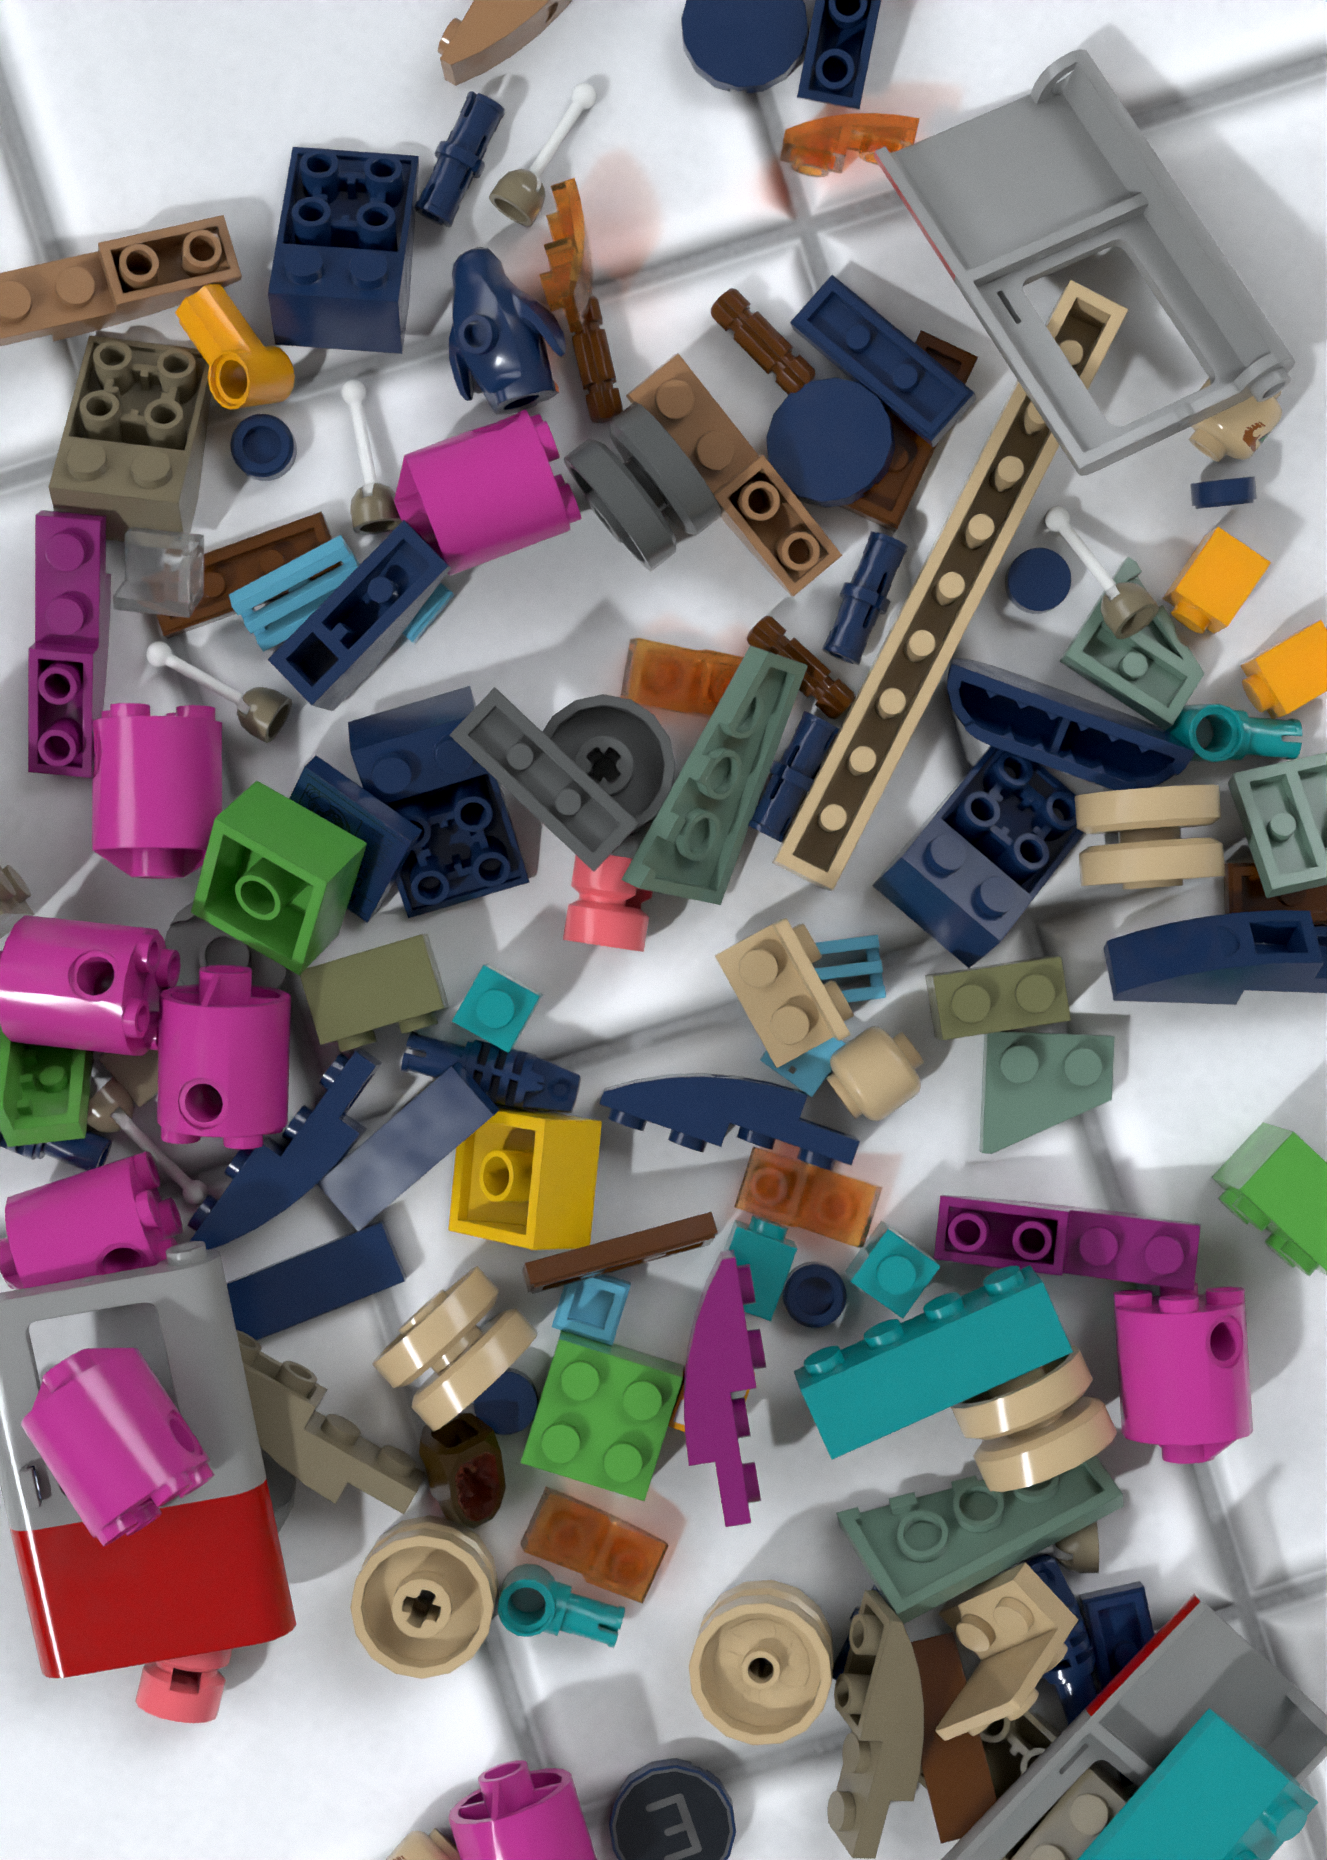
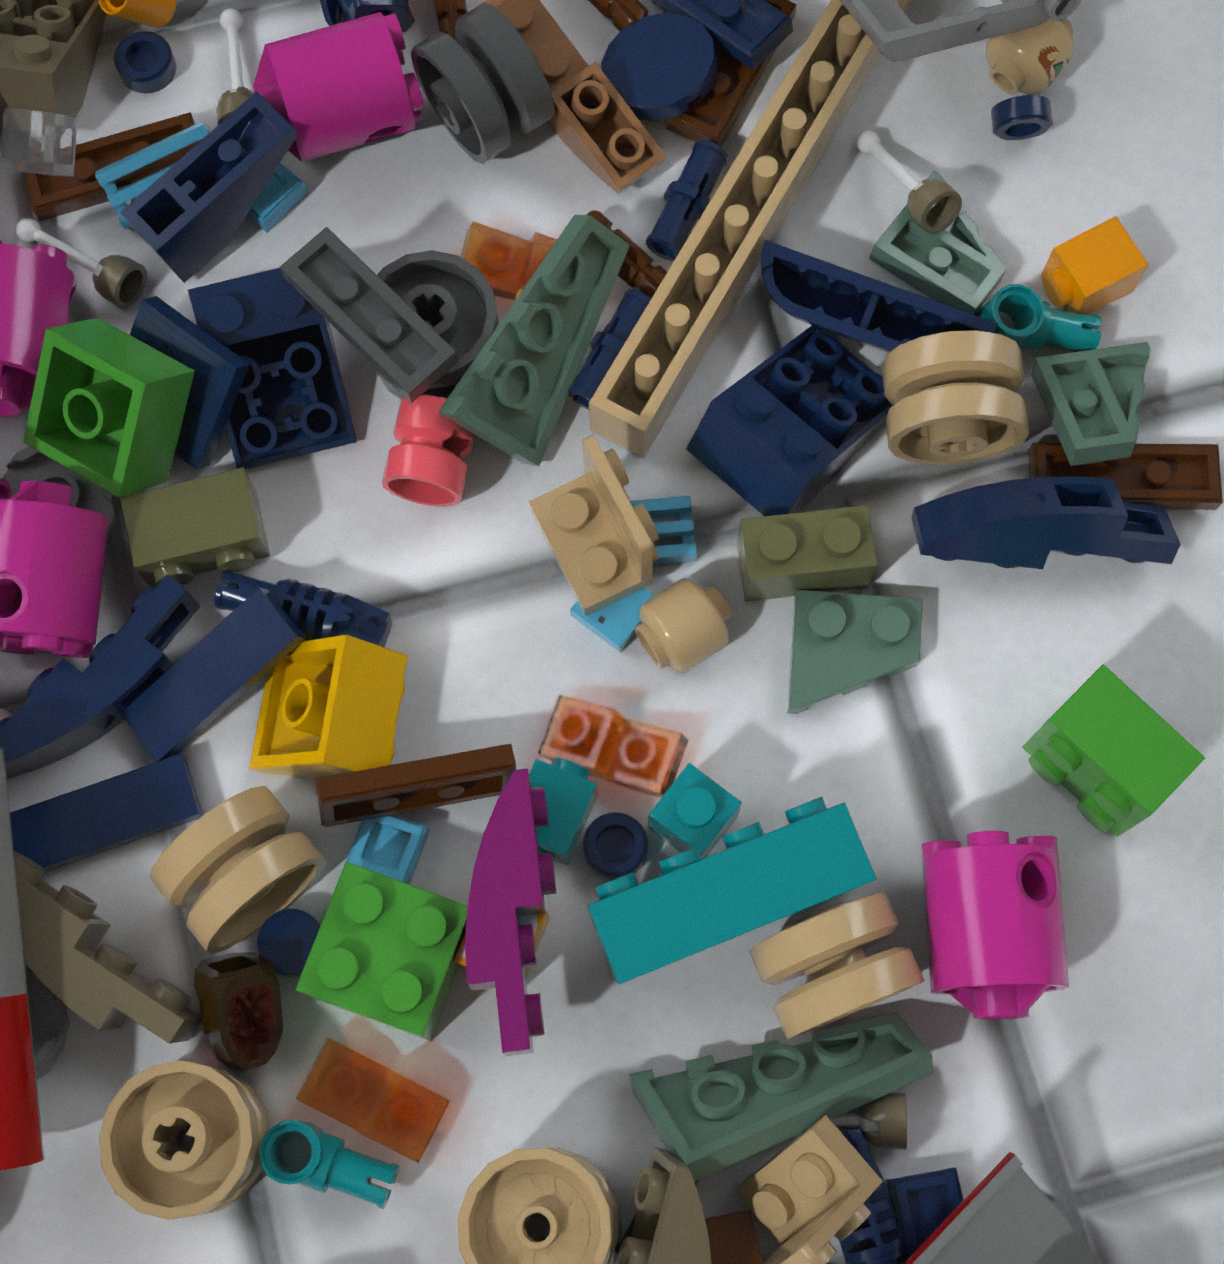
camera: 10 degrees right, 15 degrees down
(497, 1007) = (313, 544): teal brick -> none
(704, 1104) = (513, 646): dark blue slope -> none
(1038, 580) = (849, 192): dark blue tile -> none
(1067, 1240) = (879, 795): magenta slope -> none
(1215, 582) = (1015, 191): light orange brick -> none

